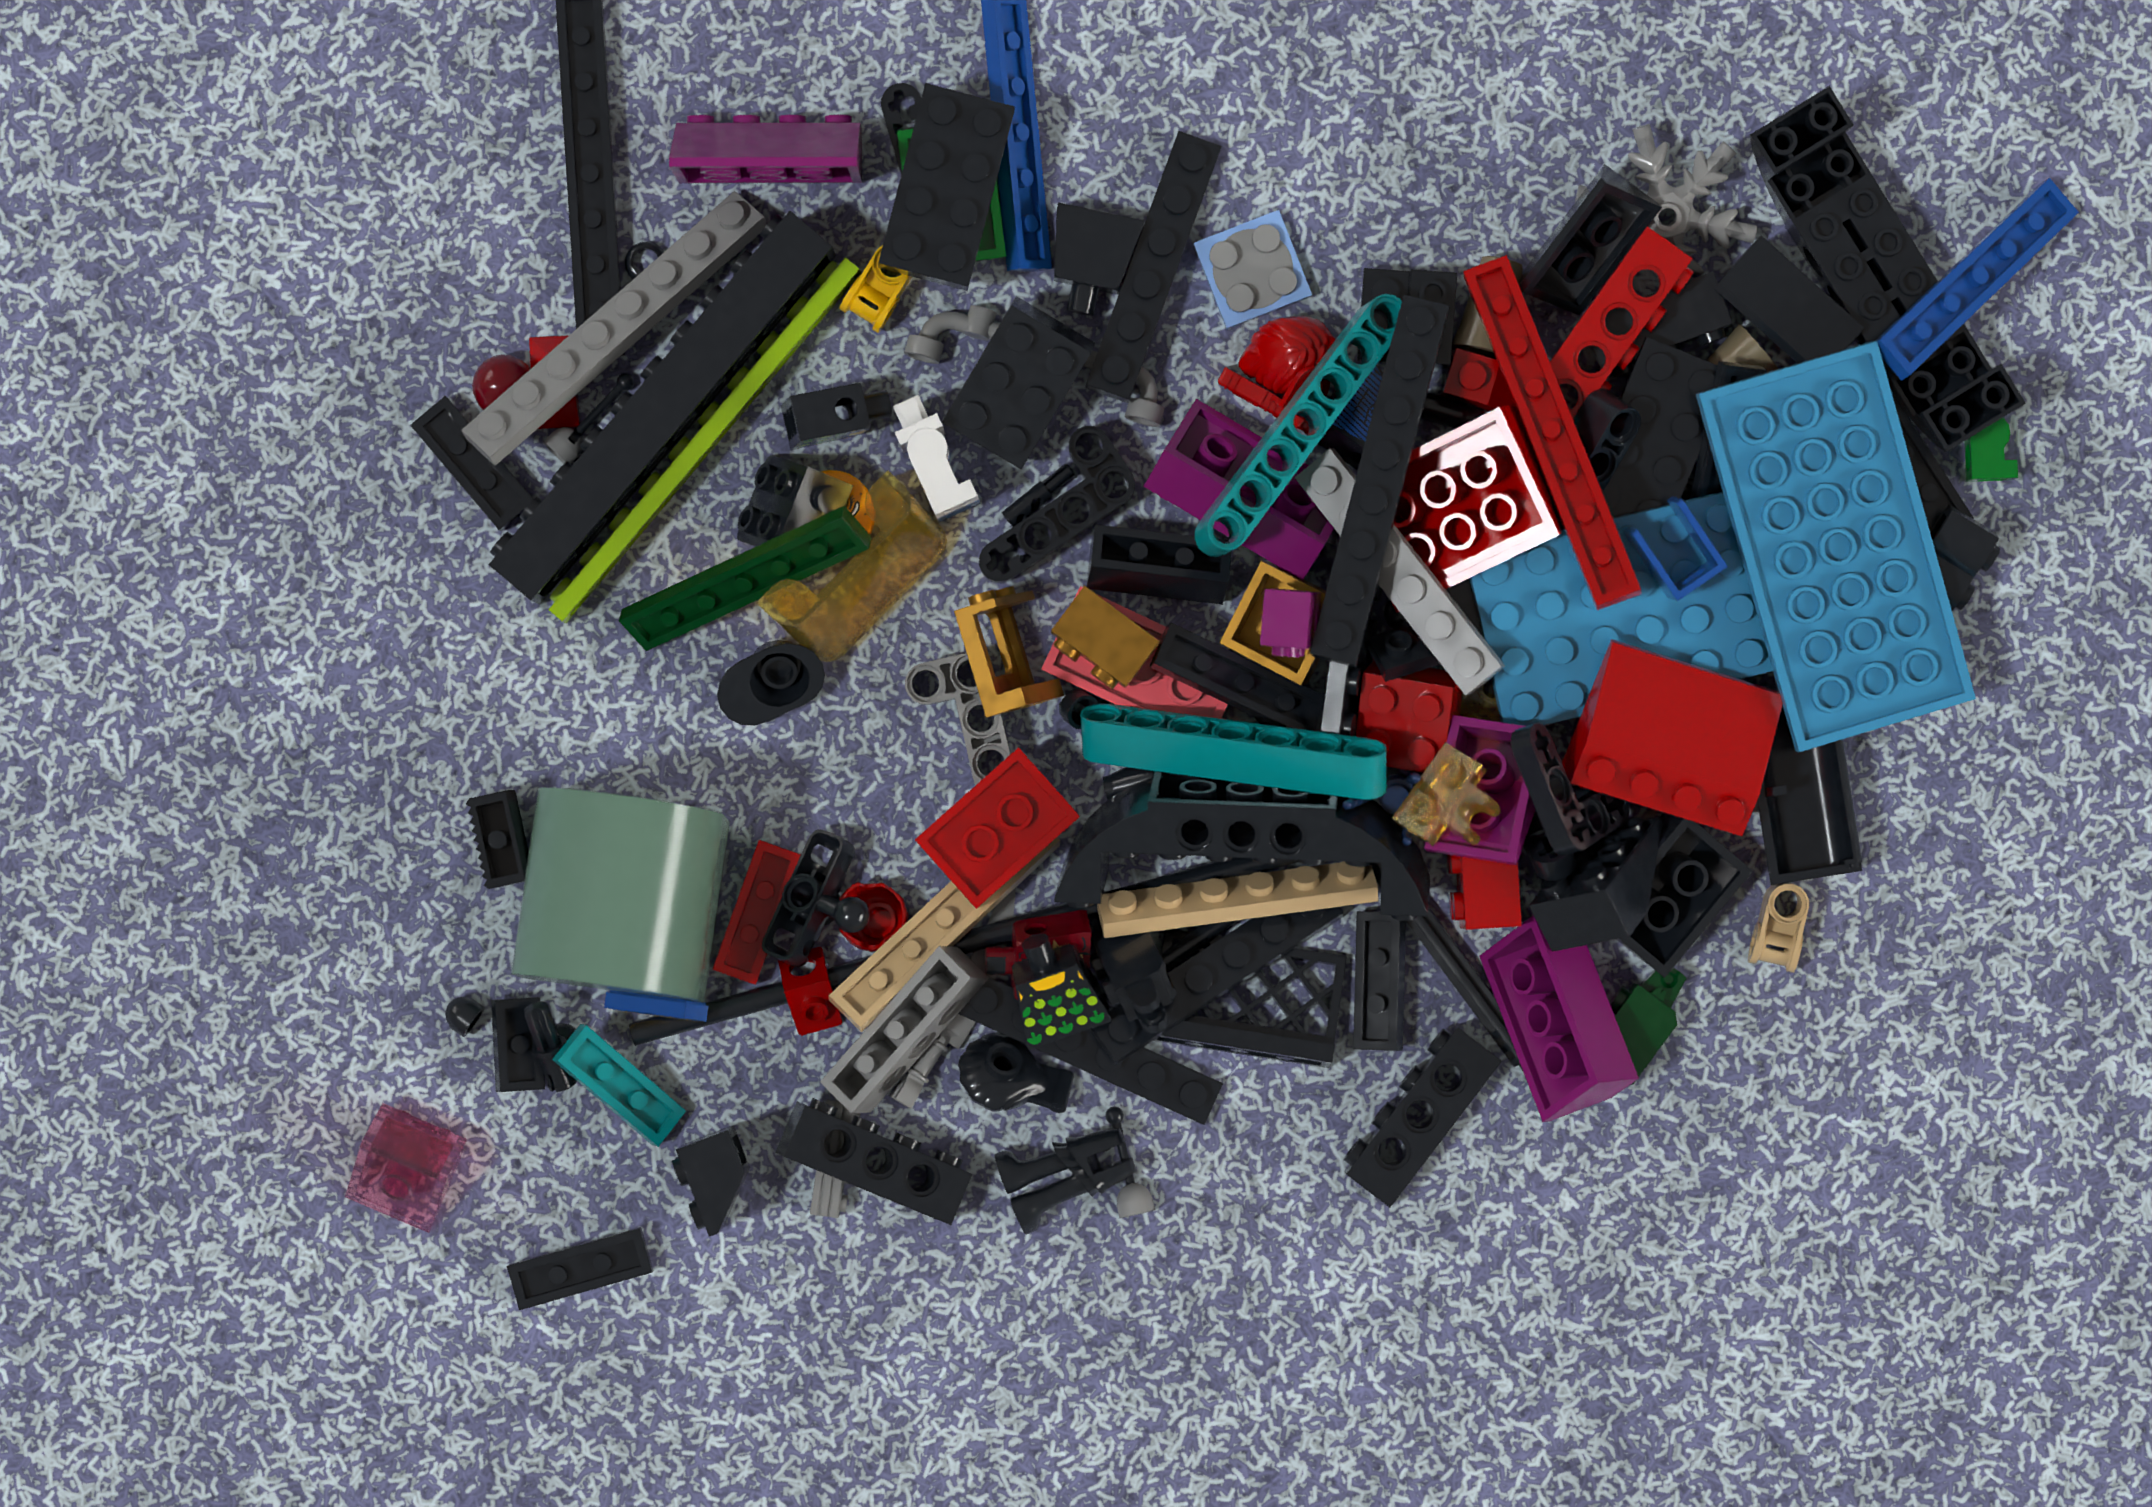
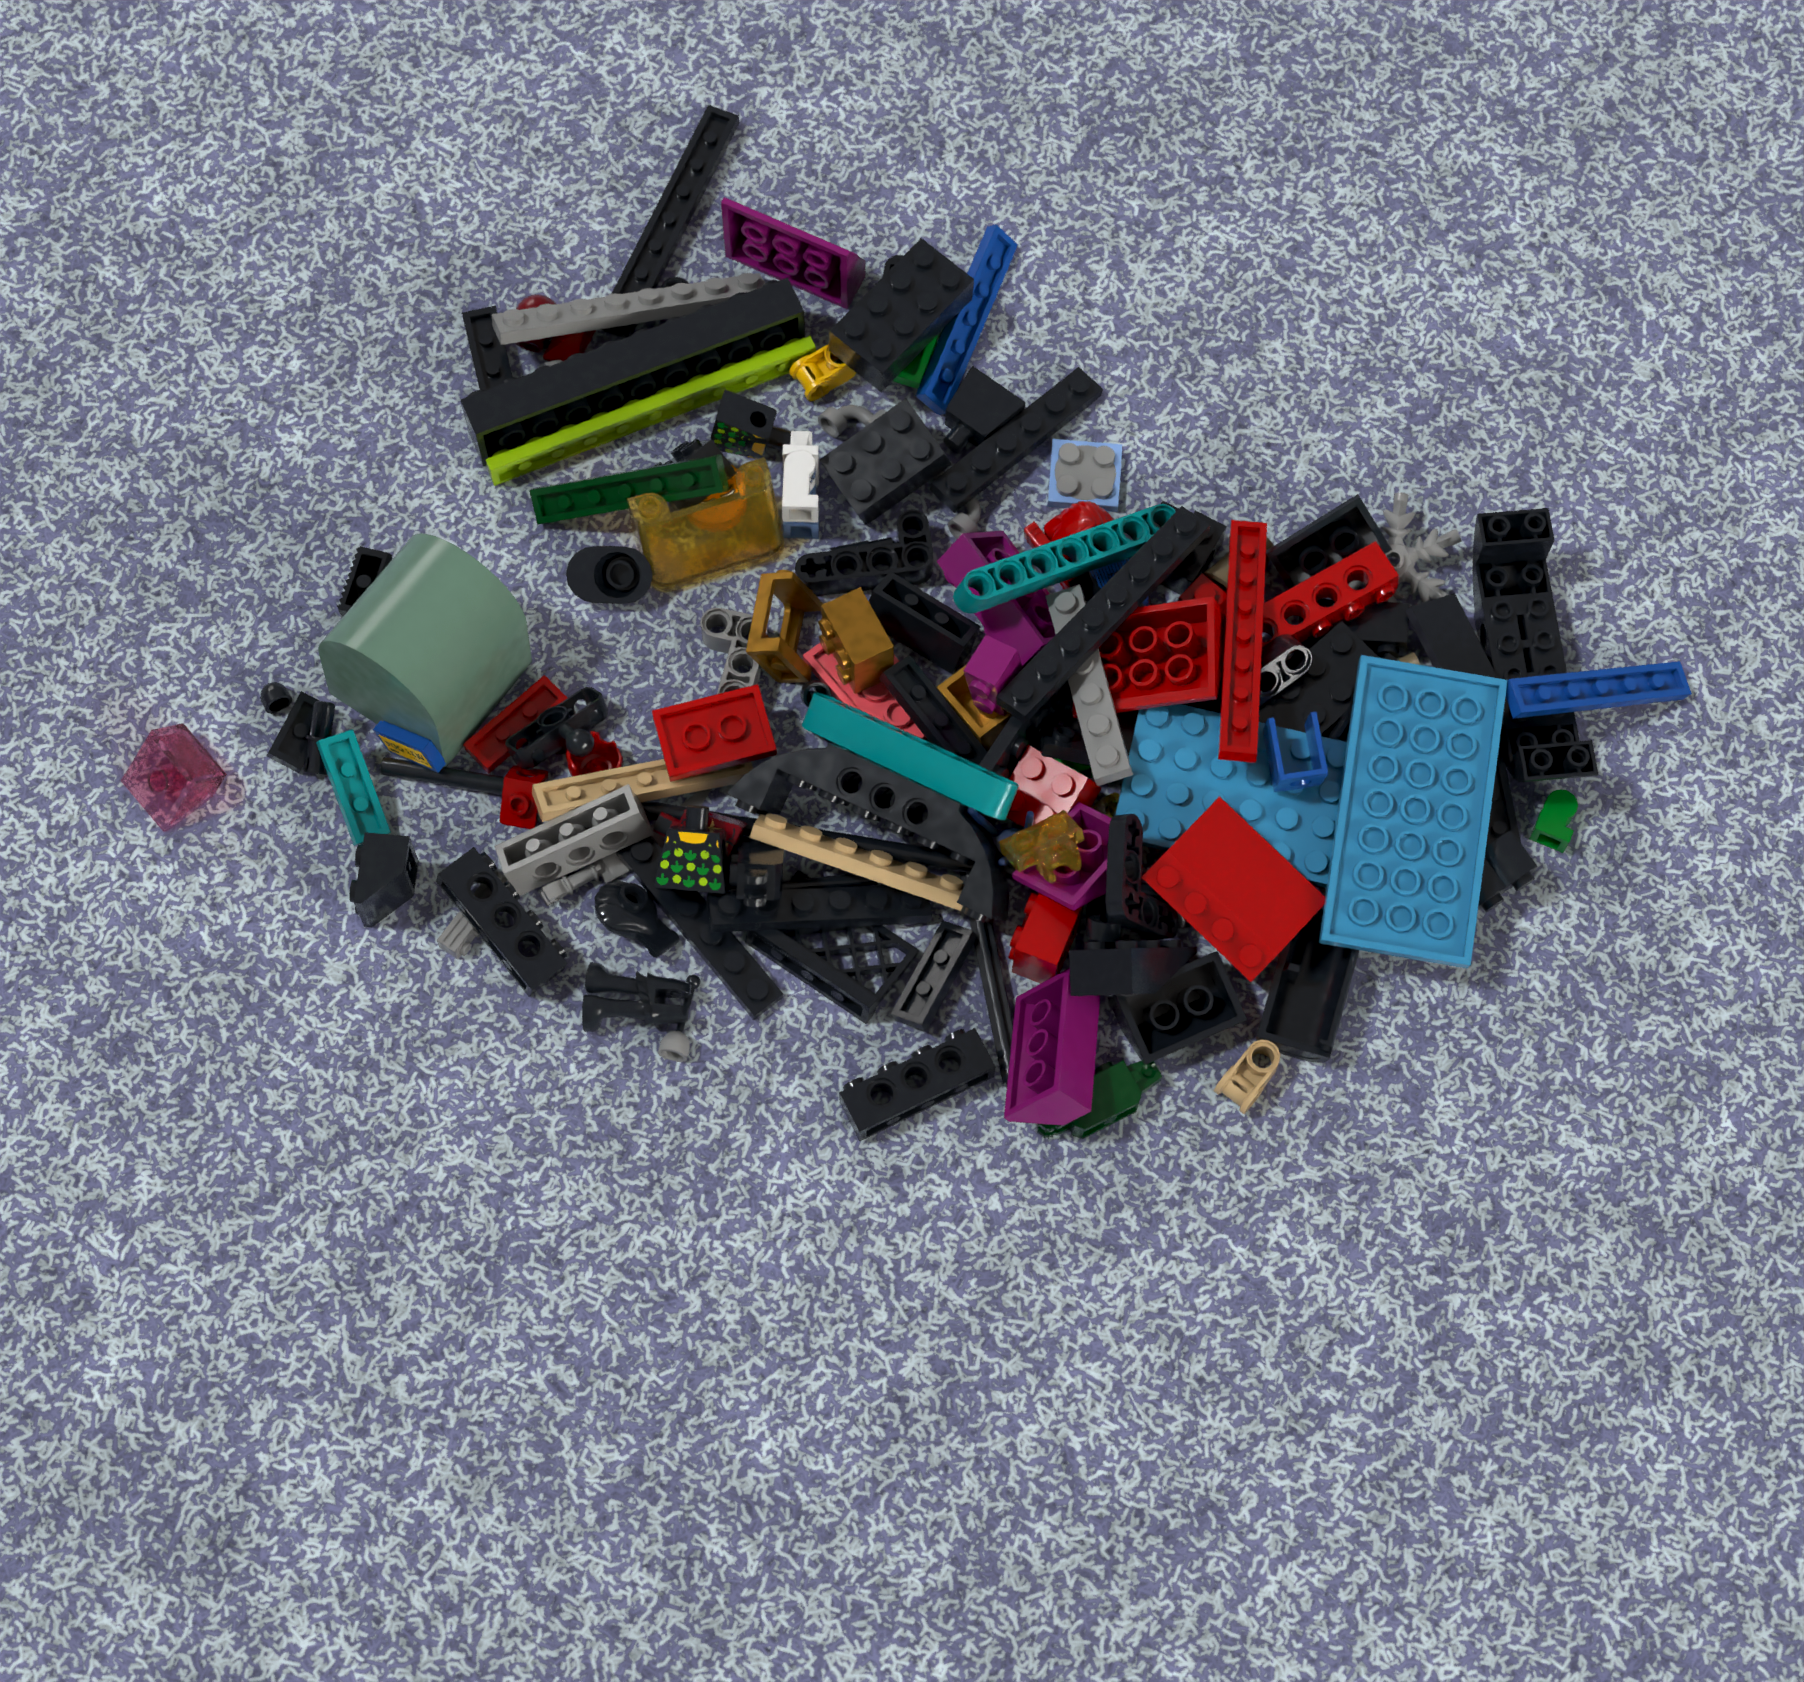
camera: 25 degrees right, 20 degrees down
(580, 1268) = (253, 903): black plate -> none

